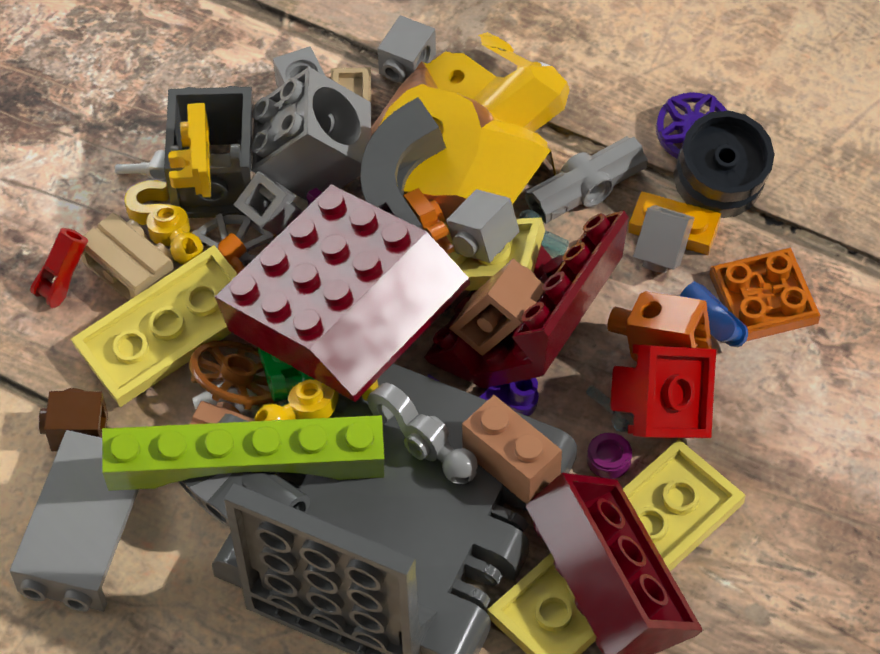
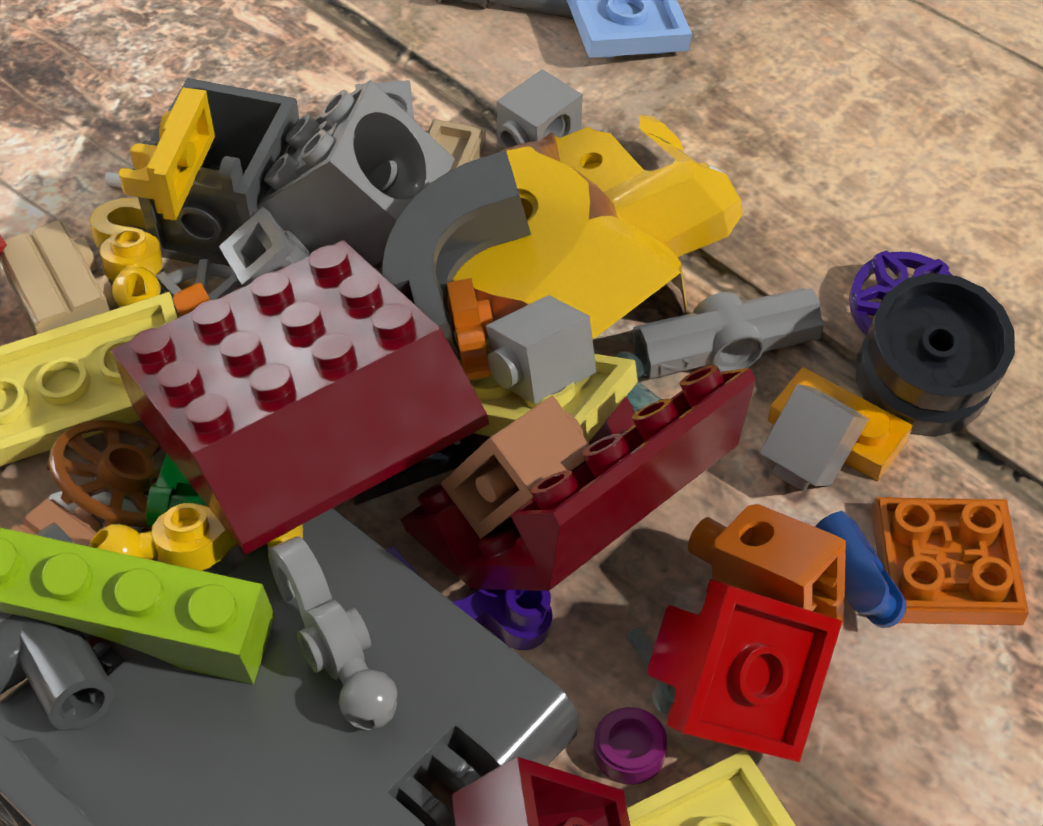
camera: 15 degrees right, 5 degrees down
(511, 449) = (455, 694): nougat brick -> none

